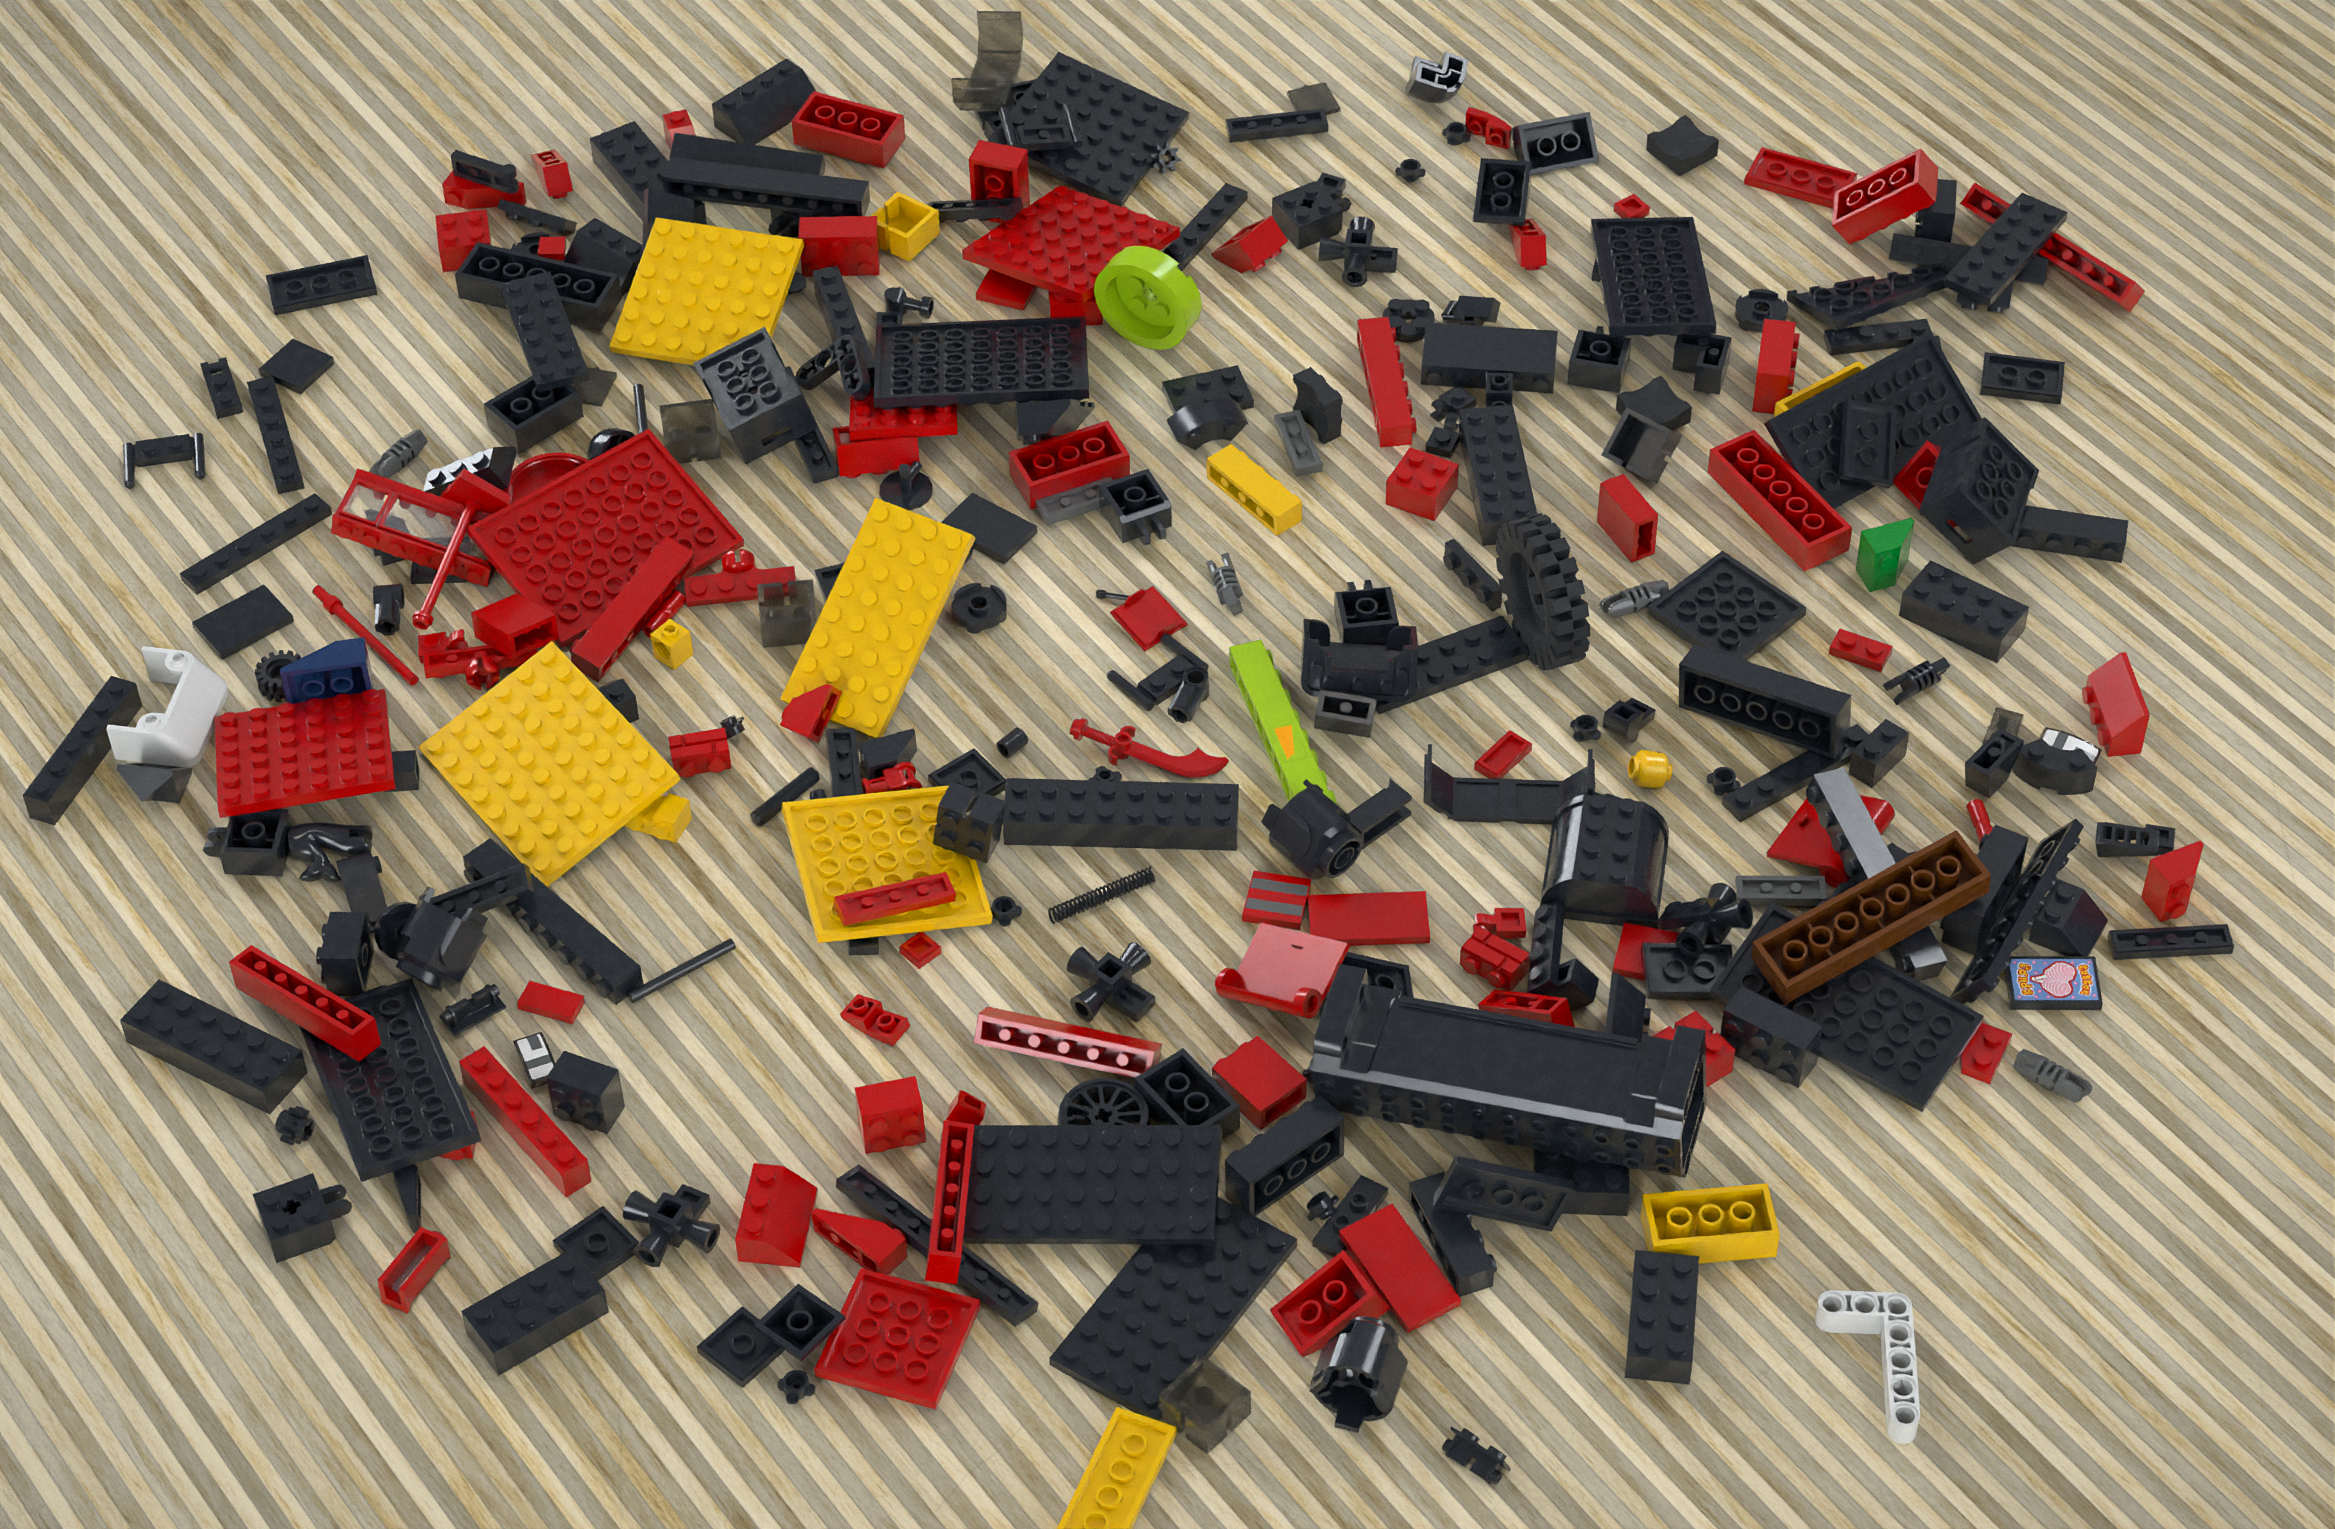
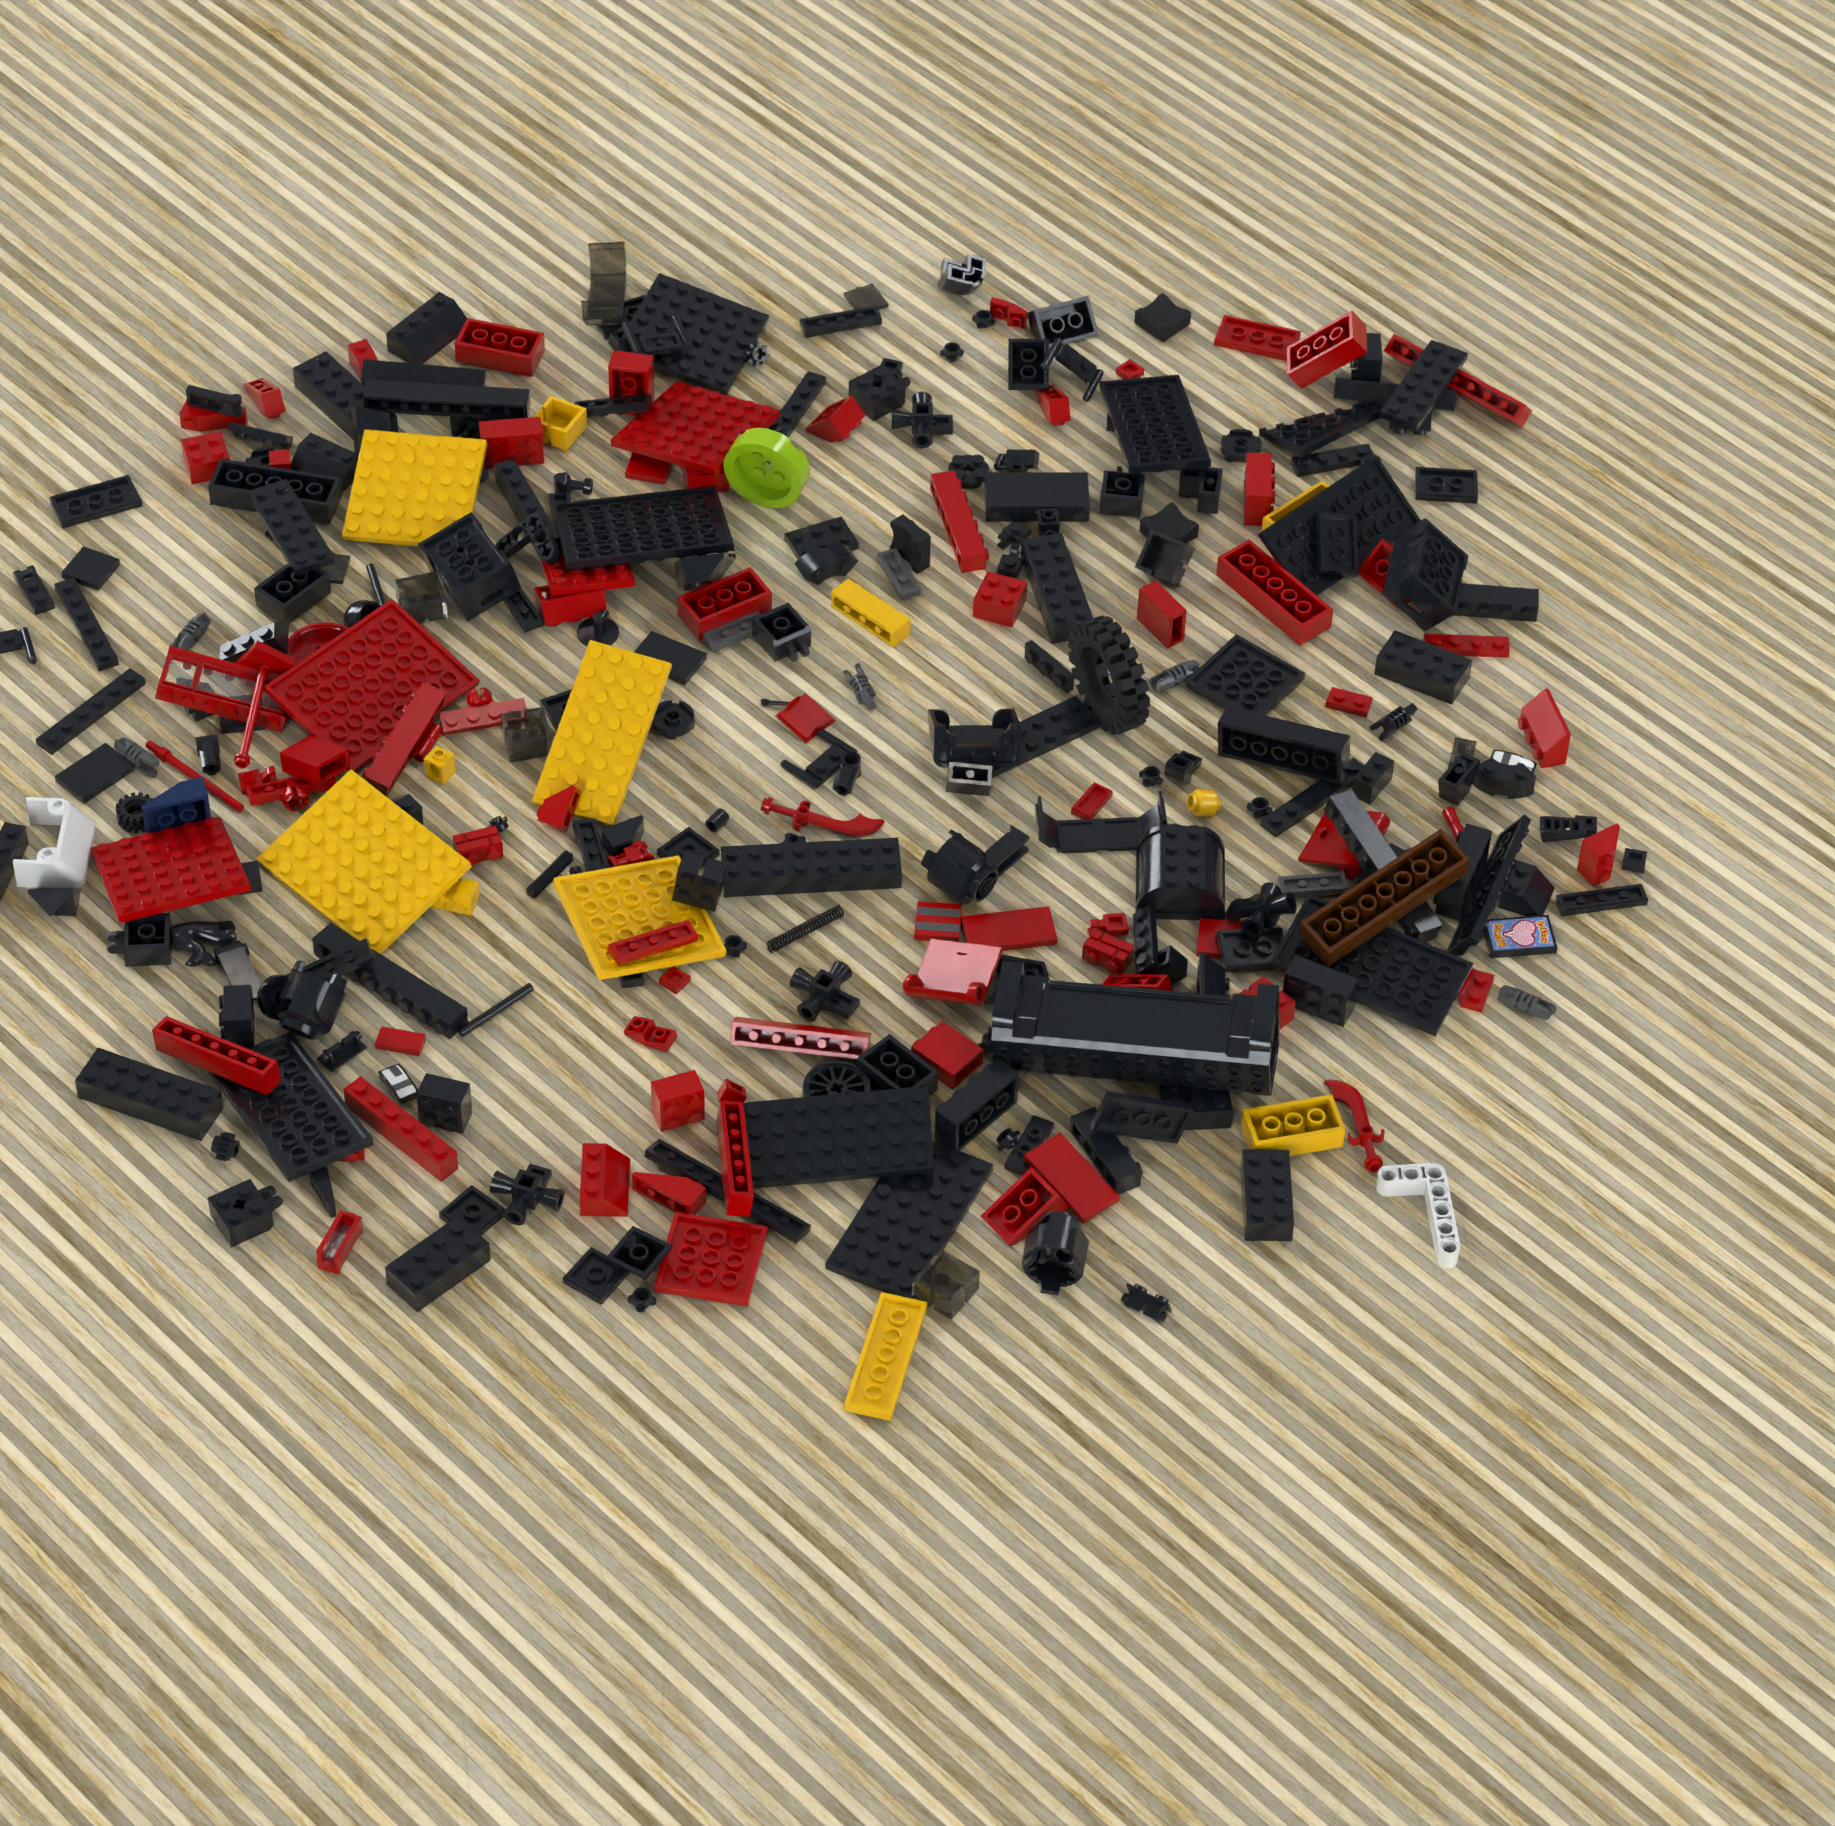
camera: 10 degrees left, 0 degrees up
(299, 605) = (137, 756): none -> dark grey hinge
(1275, 719) = (915, 787): lime brick -> none
(1365, 614) = (972, 702): black hinge -> none
(1563, 195) = (1076, 364): none -> black plate
(1796, 1186) = (1352, 1098): none -> red sword
(1884, 553) = (1358, 628): green slope -> none
(2031, 586) = (1471, 644): none -> red plate
(2220, 891) = (1634, 860): none -> black plate

